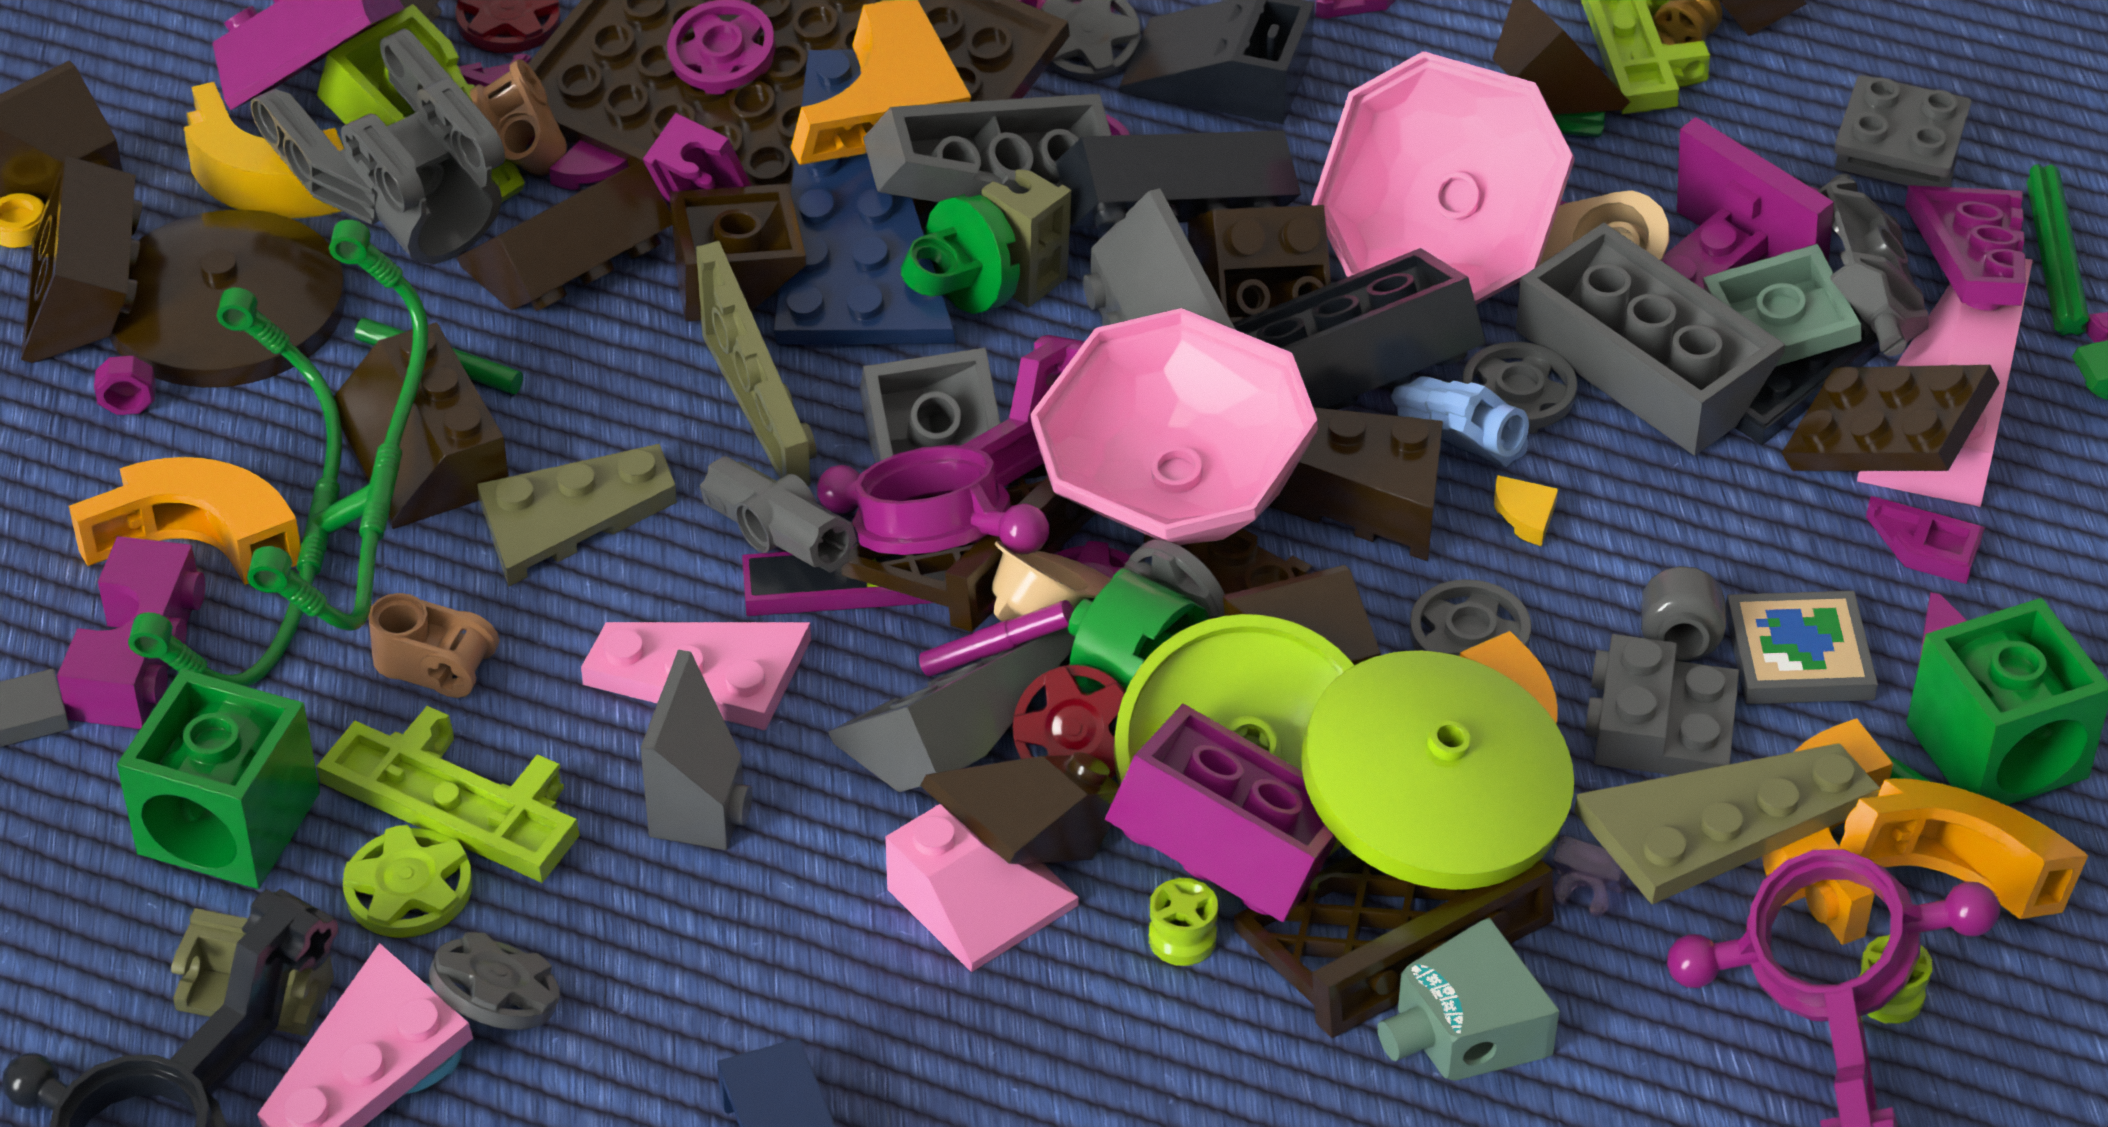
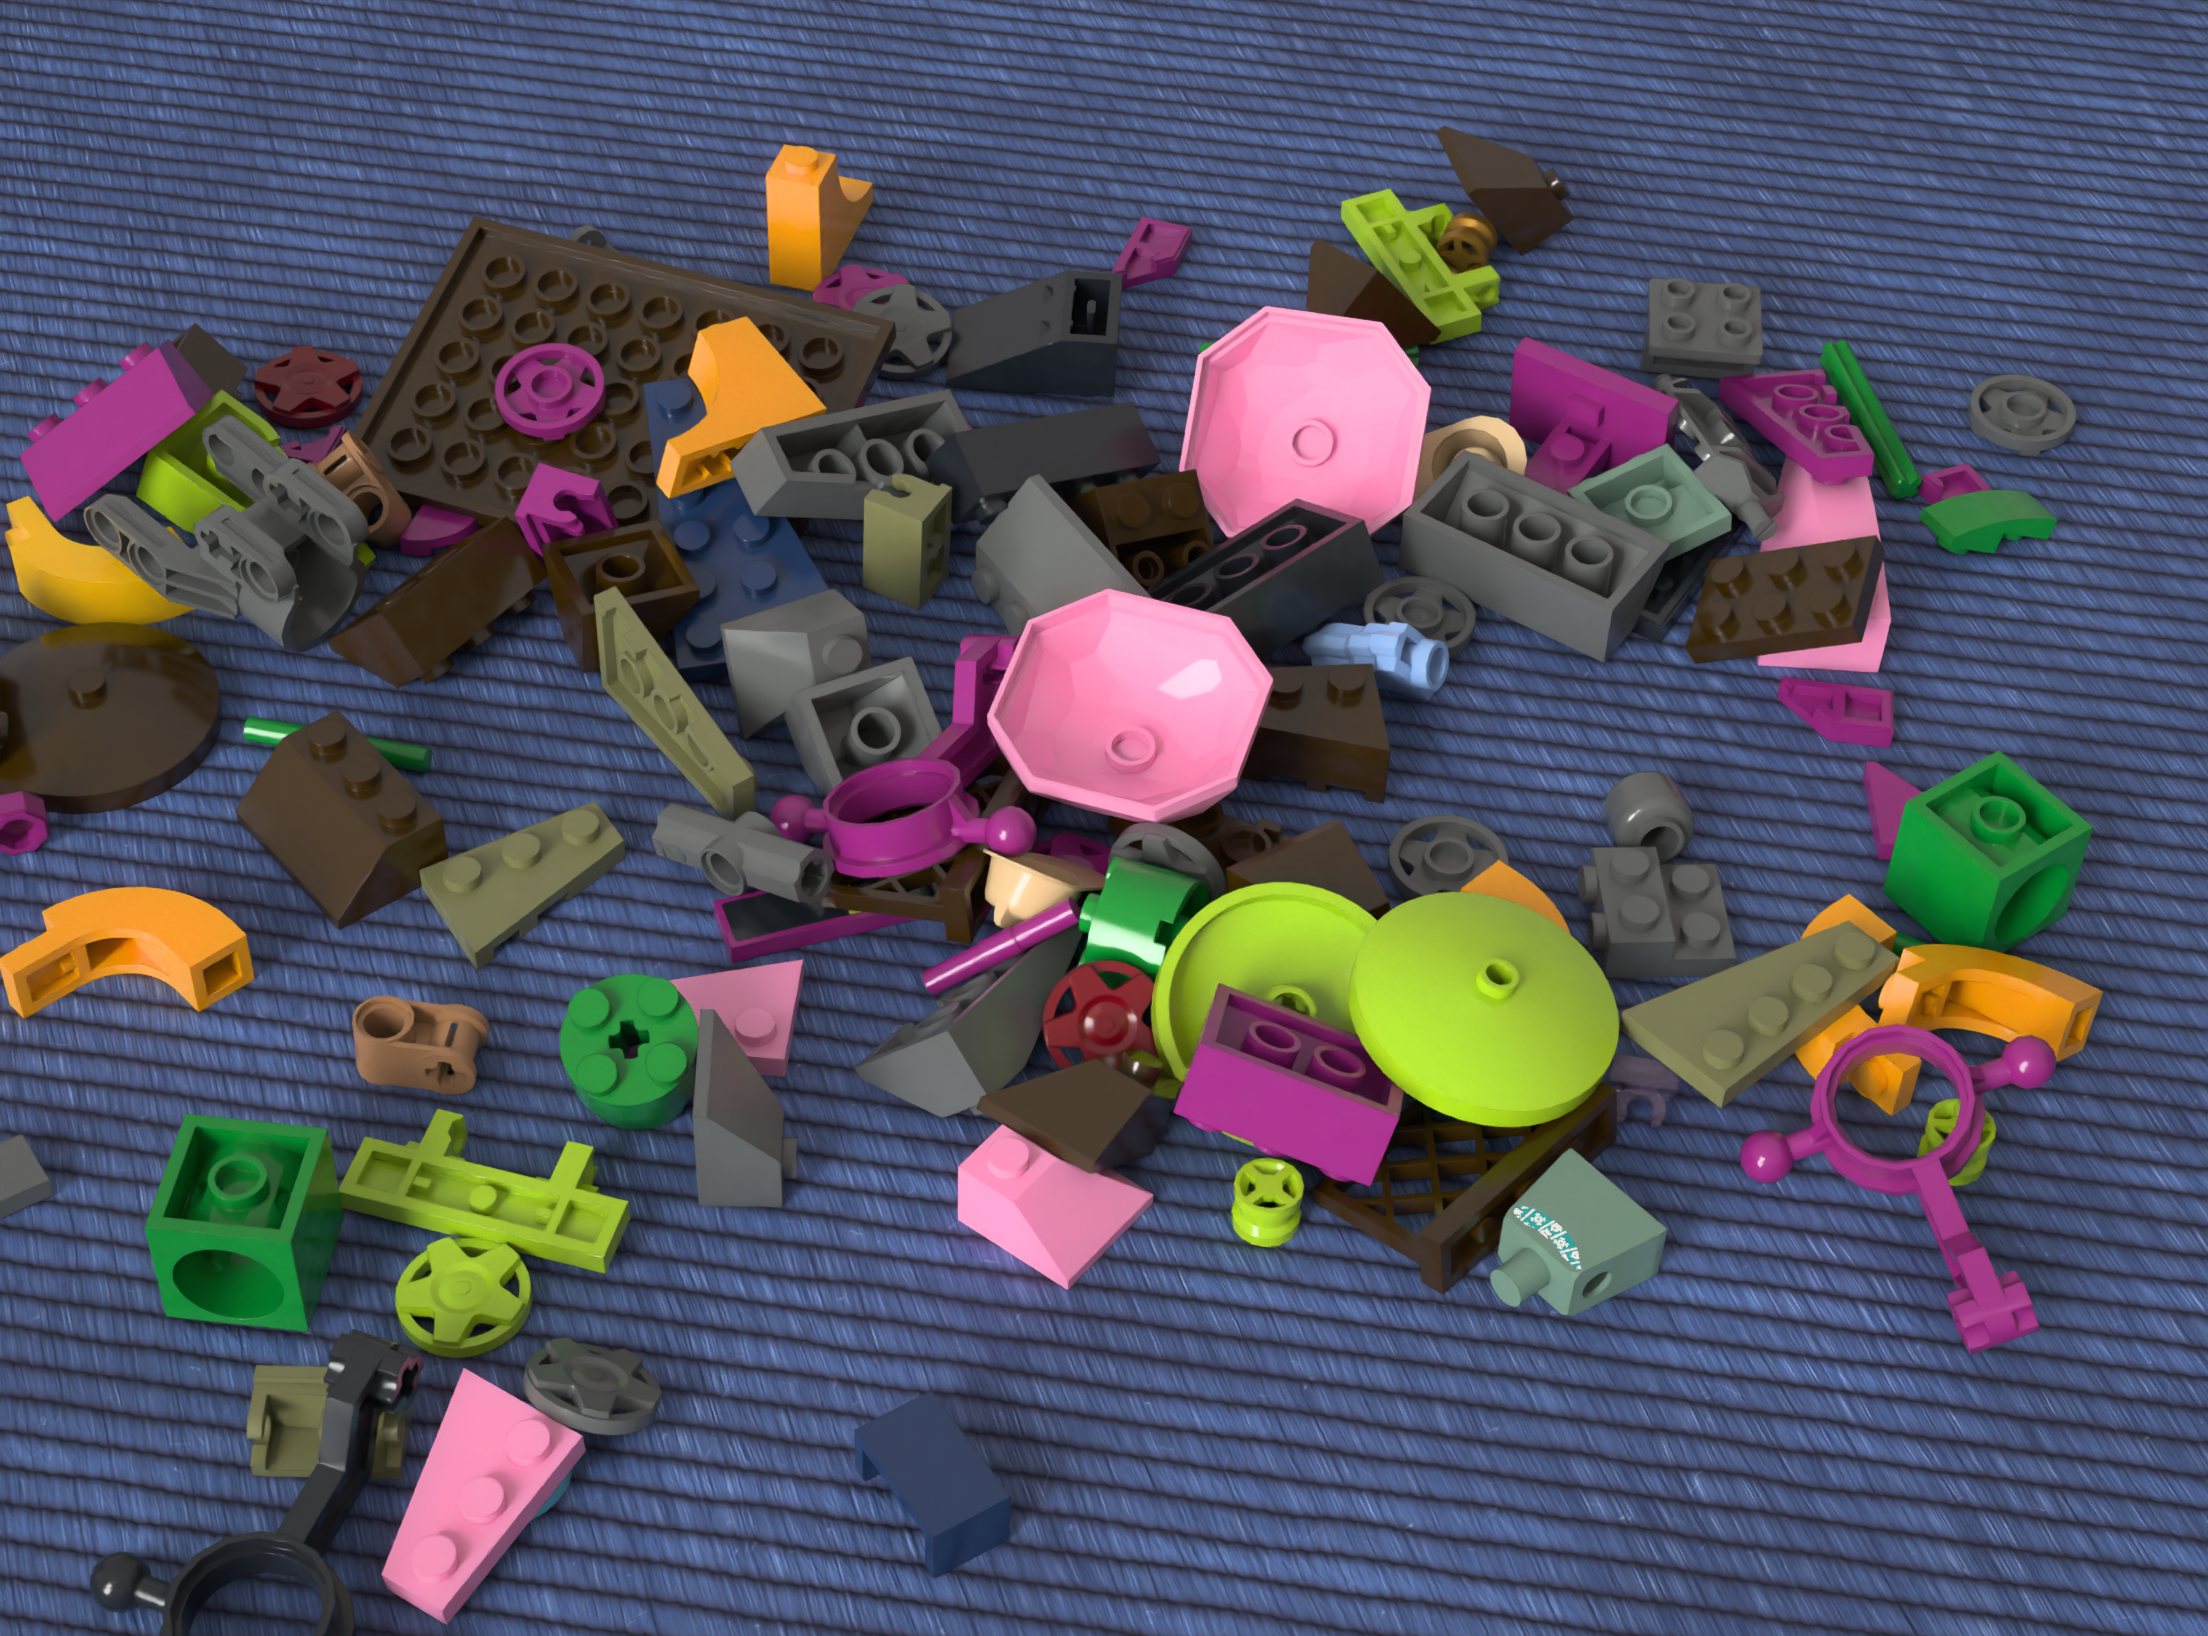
camera: 15 degrees left, 0 degrees up
(100, 673) = (99, 1126): magenta arch -> none
(271, 566) = (263, 988): green bar -> none
(606, 650) = (598, 1035): none -> green brick
(872, 326) = (790, 651): none -> dark grey slope
(969, 255) = (860, 558): green tile -> none
(1525, 507) = (1462, 735): yellow tile -> none
(1800, 647) = (1764, 833): tile -> none

